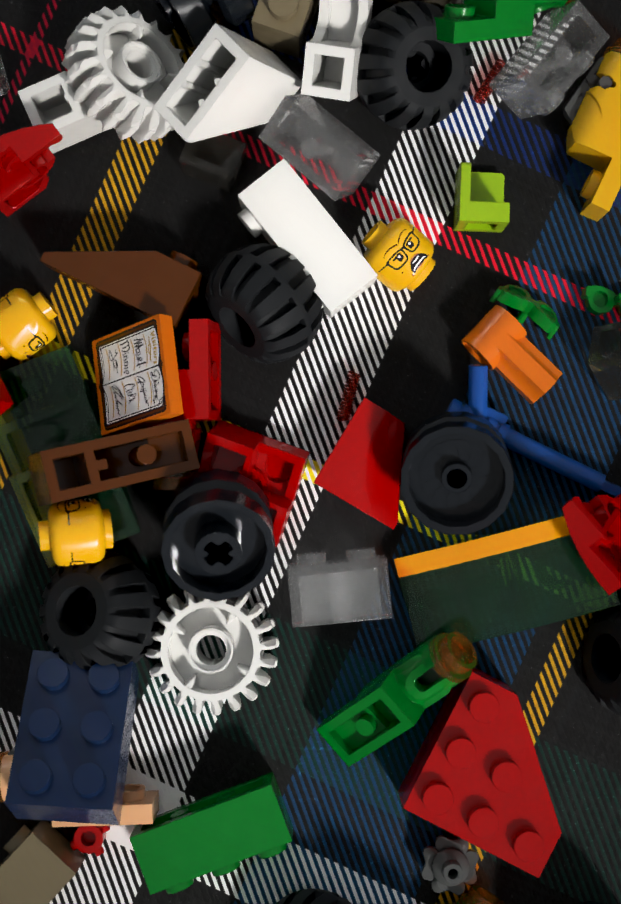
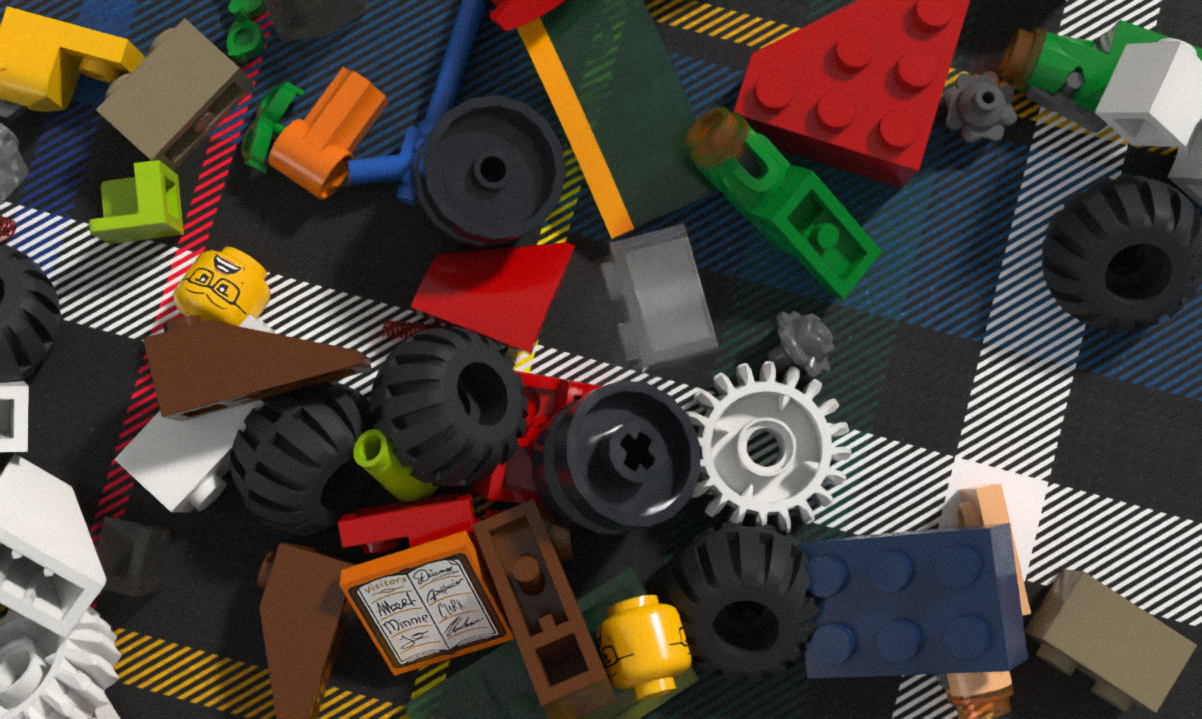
camera: 100 degrees left, 5 degrees down
(89, 839) = (1038, 566): red piece -> none
(212, 835) = (1001, 407): green brick -> none
(245, 372) = (384, 466): none -> lime cone
(282, 414) = (449, 405): none -> black wheel
(287, 692) = (802, 343): none -> dark grey plant
(319, 146) = (92, 418): clear brick -> none
(338, 250) = (223, 366): none -> reddish brown slope
(561, 239) = (175, 95): none -> dark tan brick

